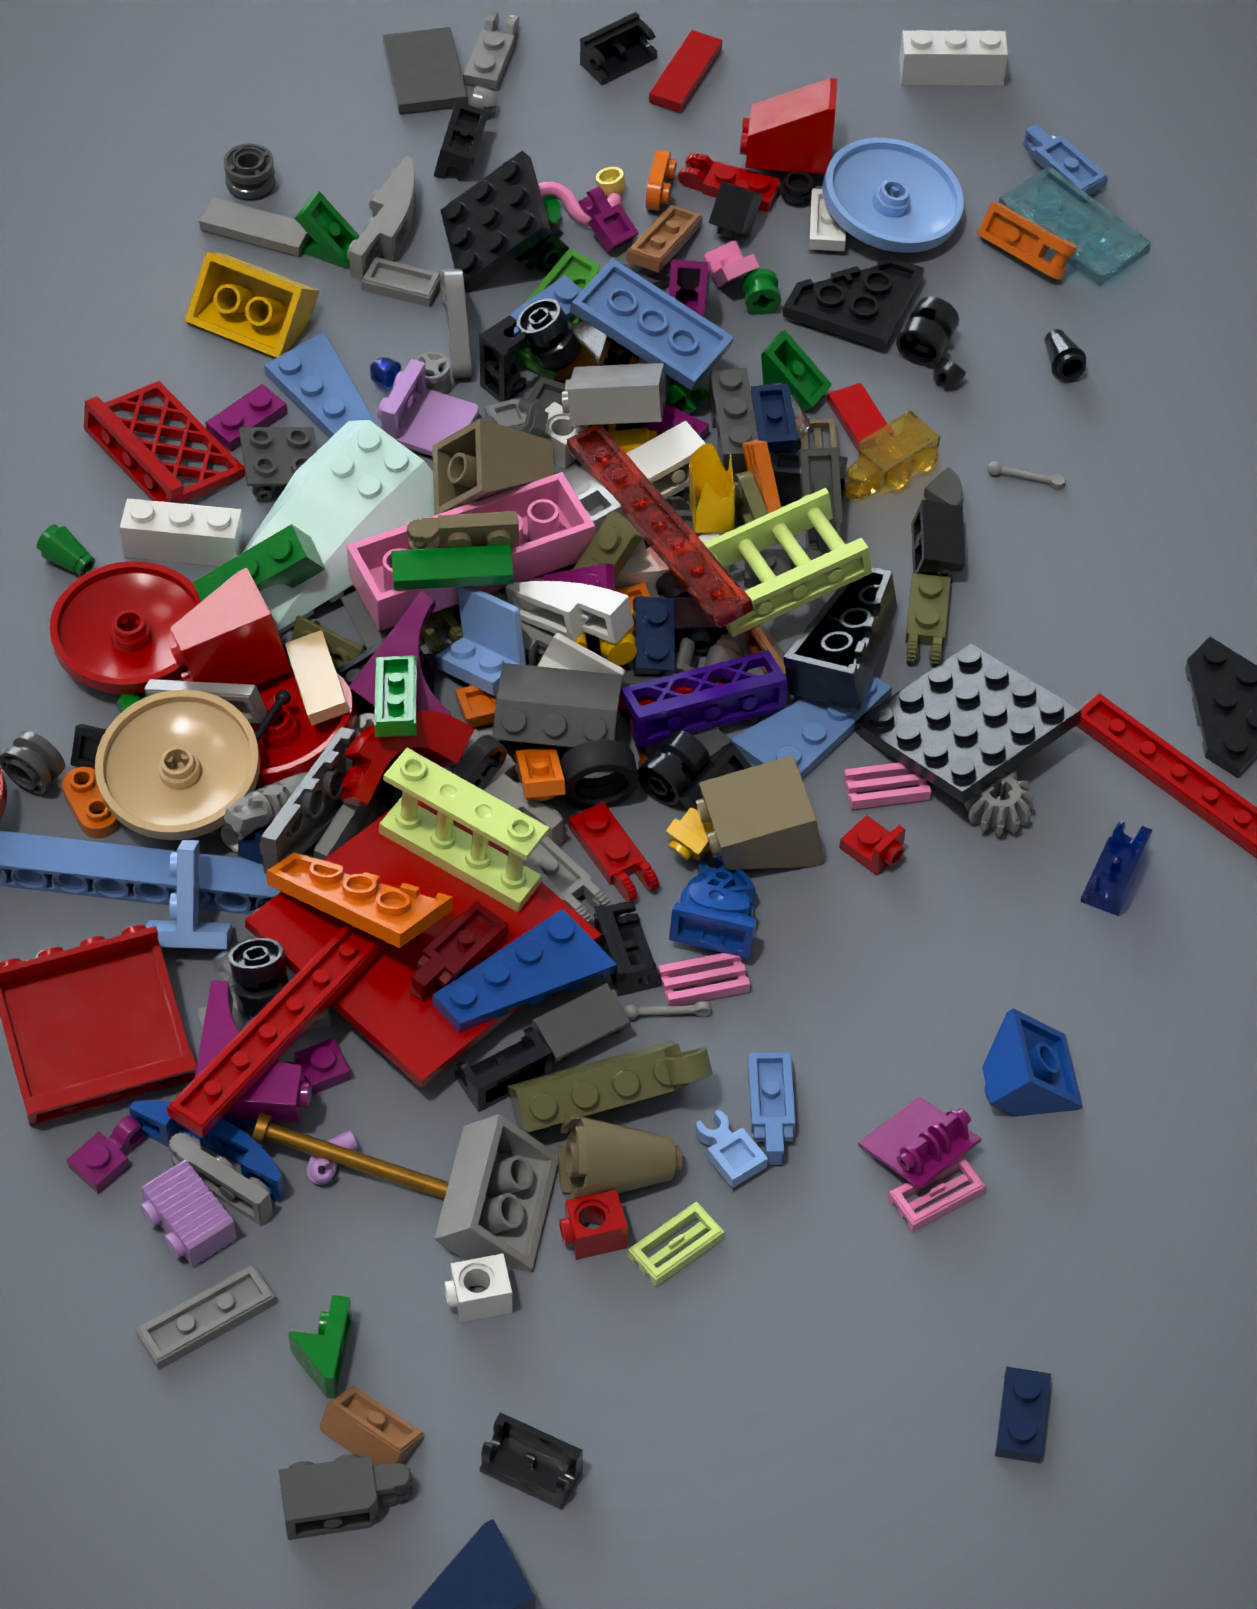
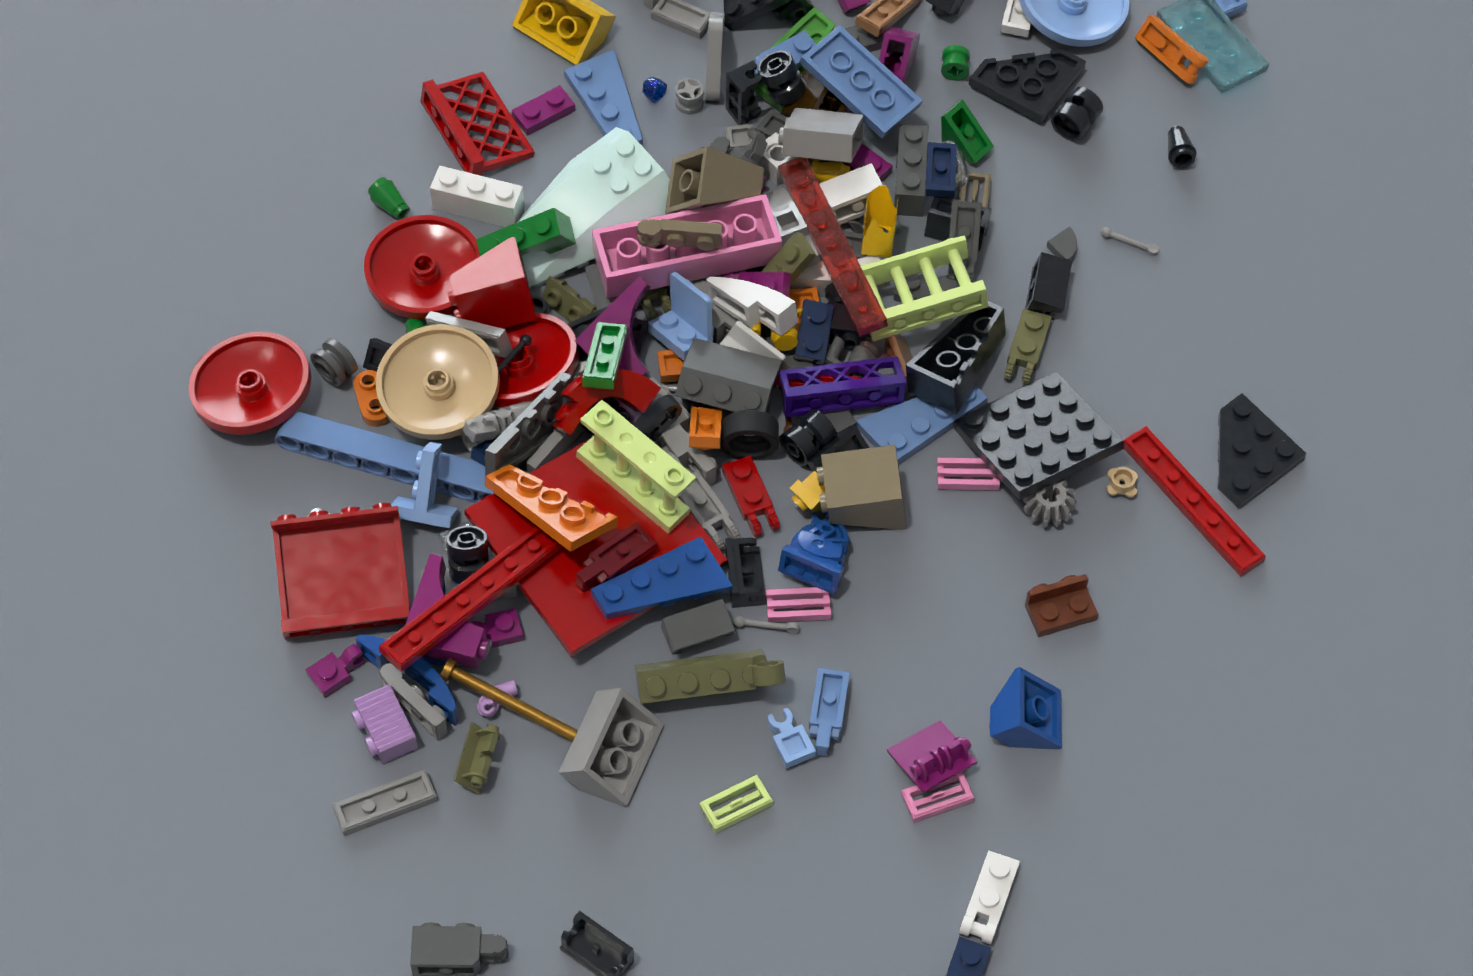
camera: 10 degrees right, 5 degrees up
(274, 456) = (557, 145): dark grey hinge -> none
(316, 677) = (553, 328): tile -> none
(318, 1237) = (475, 756): none -> olive hinge
(324, 1352) = (465, 843): green slope -> none
(369, 1428) = (486, 905): medium nougat slope -> none
(420, 415) = (674, 128): lavender bracket -> none
(452, 567) = (667, 259): green tile -> none
(485, 1272) = (592, 826): white brick -> none
(488, 1079) = (643, 649): black hinge -> none
(600, 1209) = (682, 768): red brick -> none
(613, 1157) = (701, 733): dark tan cone -> none
(680, 393) = (871, 137): green tile -> none
(729, 264) = (934, 36): bright pink bracket -> none
(748, 497) = (908, 228): olive plate -> none
(760, 465) = (921, 217): orange tile -> none
(856, 412) = (1010, 176): red tile -> none
(874, 845) = (947, 520): red bracket -> none
(892, 457) = (1027, 212): clear yellow hinge -> none
(949, 371) = (1086, 147): black hinge -> none
(1033, 1309) = (989, 896): none -> white plate
(1041, 928) = (1060, 605): none -> copper bracket
(1084, 757) = (1124, 475): none -> tan plate
(1116, 869) = (1128, 568): clear blue hinge -> none

